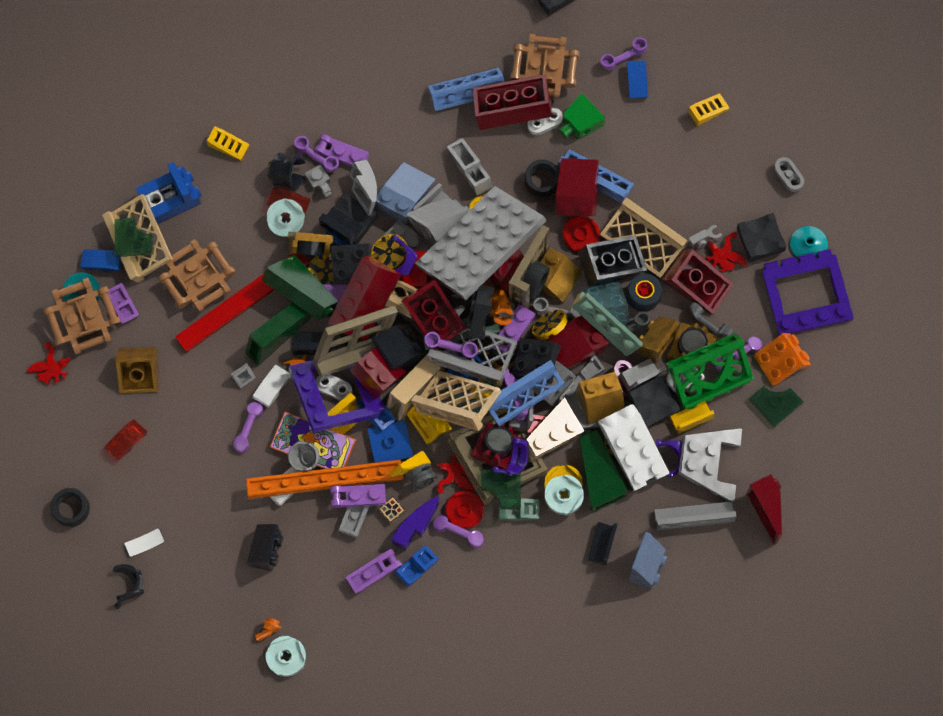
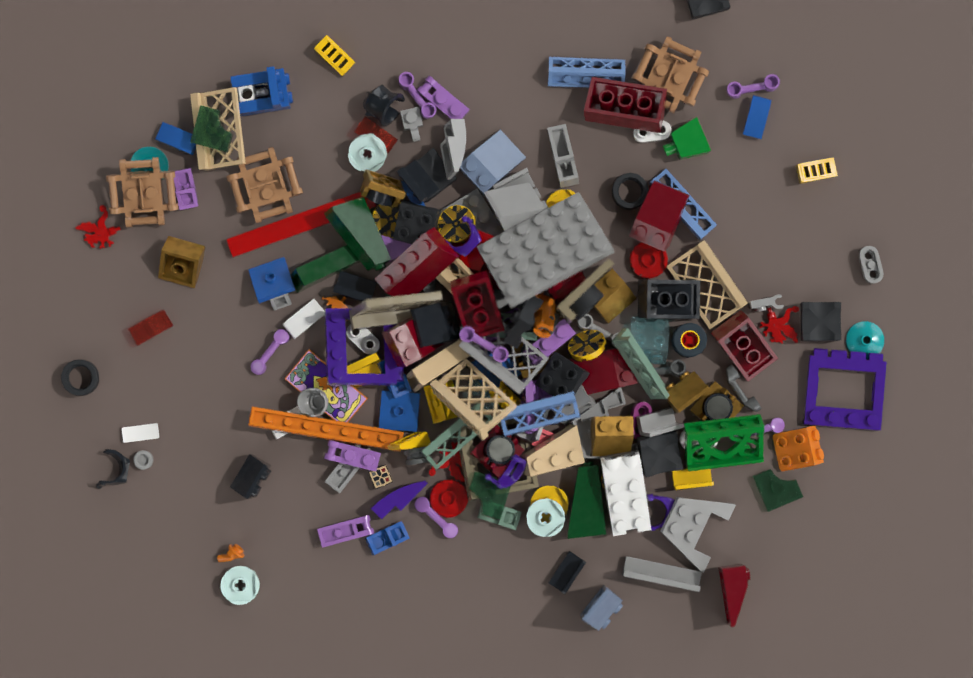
camera: 15 degrees right, 15 degrees up
(154, 567) = (143, 460): none -> light grey tile
(229, 358) = (271, 280): none -> blue plate
(443, 444) = (434, 446): none -> sand green fence

